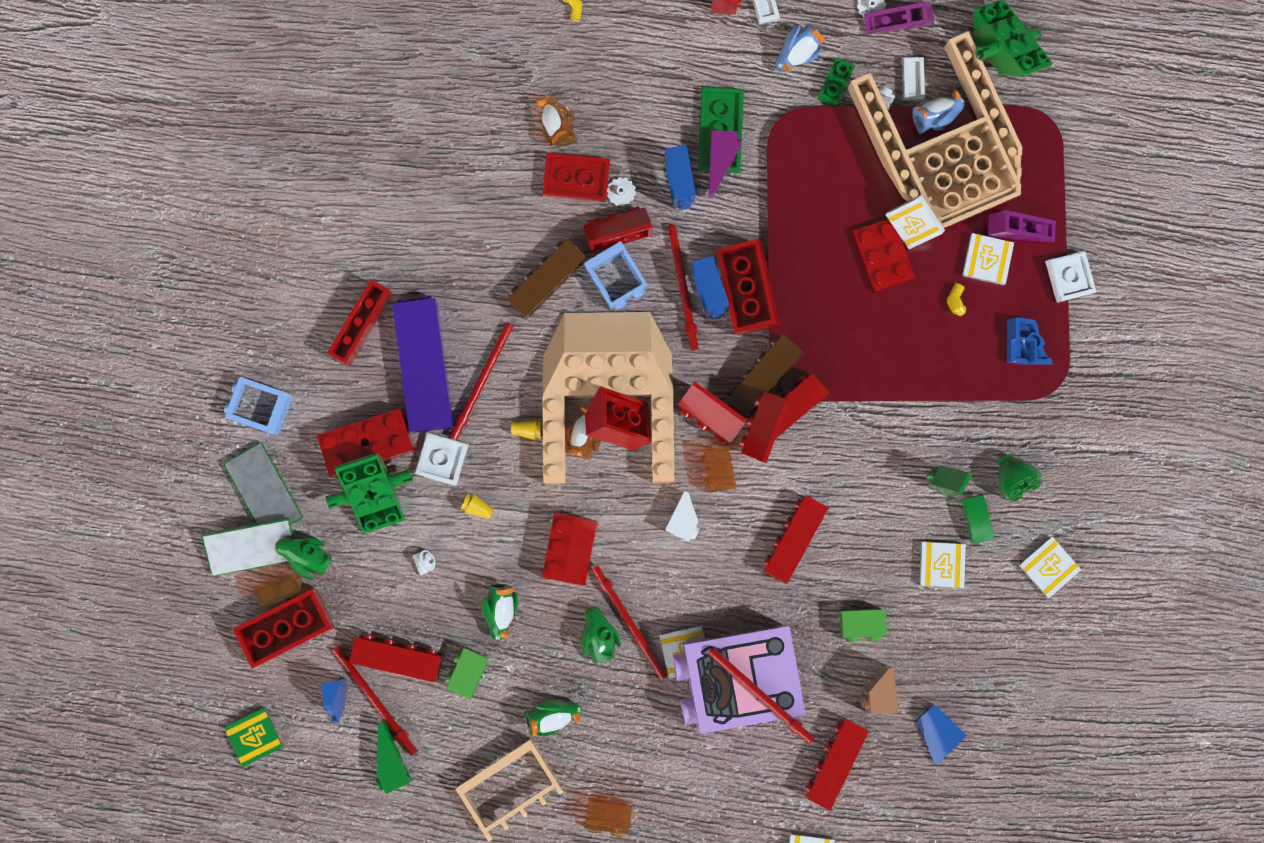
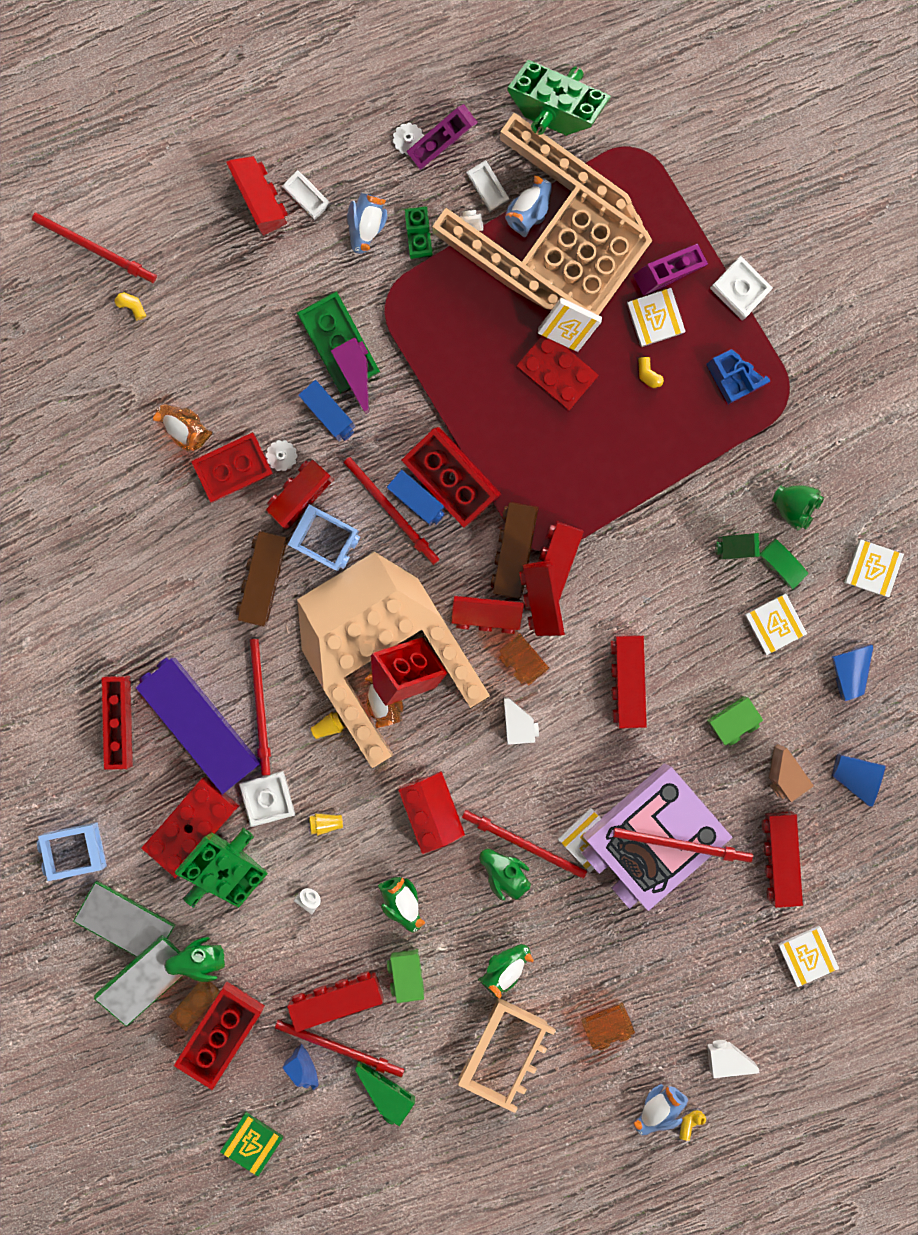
camera: 30 degrees left, 5 degrees up
(983, 641) = (852, 671): none -> blue slope

